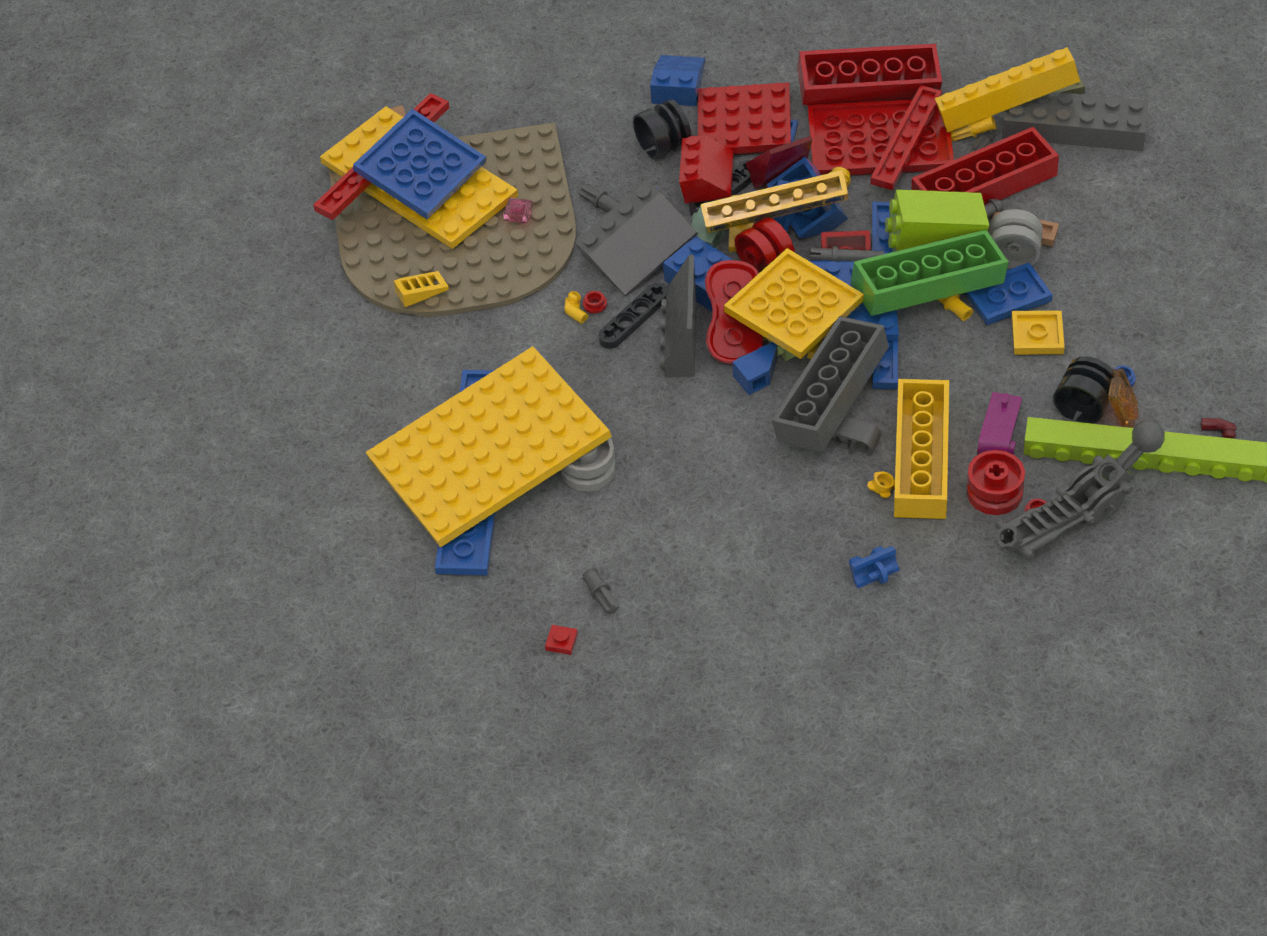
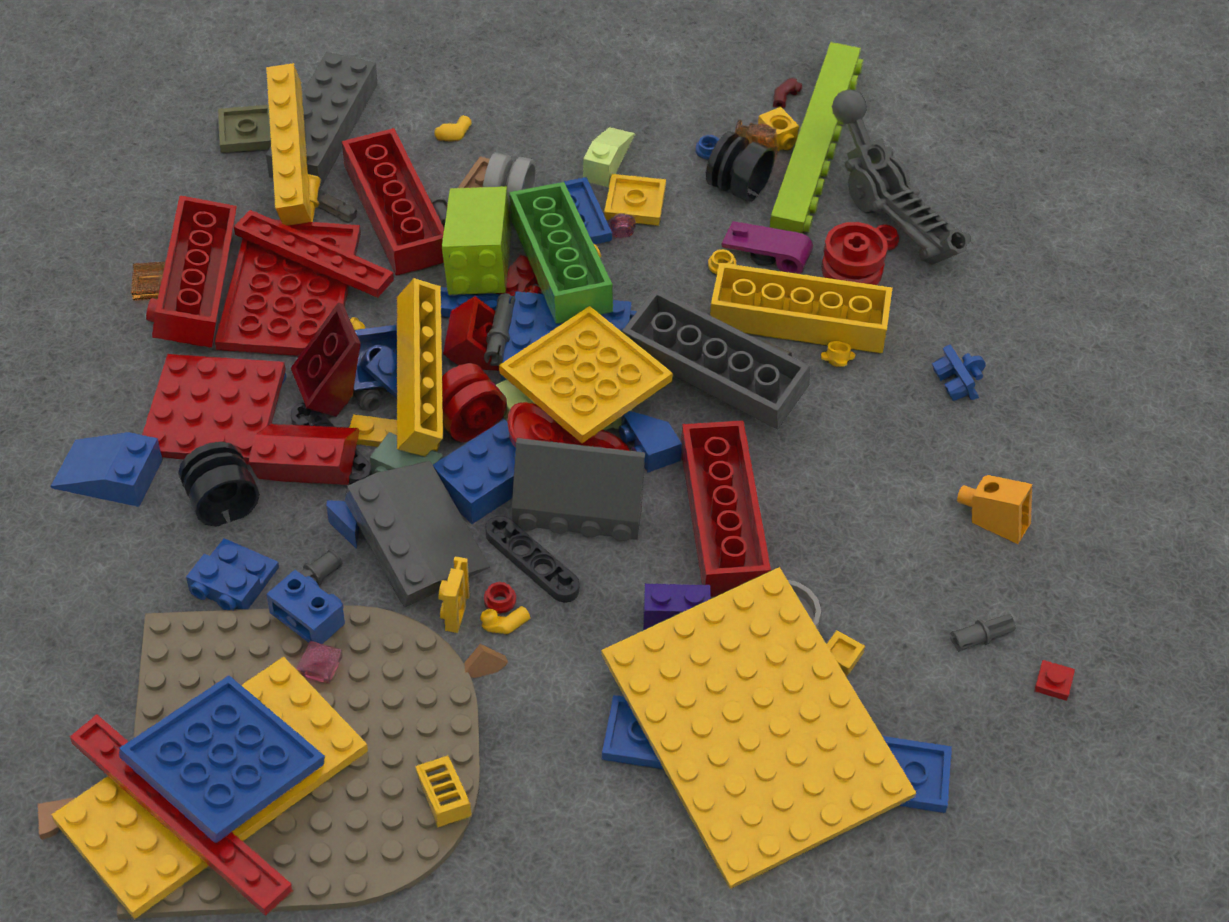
camera: 90 degrees left, 0 degrees up
(535, 300) = (484, 662): none -> medium nougat tile
(556, 192) = (306, 607): none -> blue brick
(568, 502) = (845, 650): none -> yellow plate
(580, 268) = (454, 595): none -> yellow plate
(592, 158) = (231, 576): none -> blue plate
(593, 393) = (668, 600): none -> dark purple brick
(691, 415) = (723, 505): none -> red brick
(722, 580) = (1000, 506): none -> light orange torso
(975, 393) = (720, 256): none -> yellow plate
(1000, 326) = (622, 225): none -> clear pink plate
(1089, 305) = (606, 155): none -> yellowish green slope
(1092, 206) = (453, 132): none -> yellow arm
(1161, 413) = (785, 127): none -> yellow brick

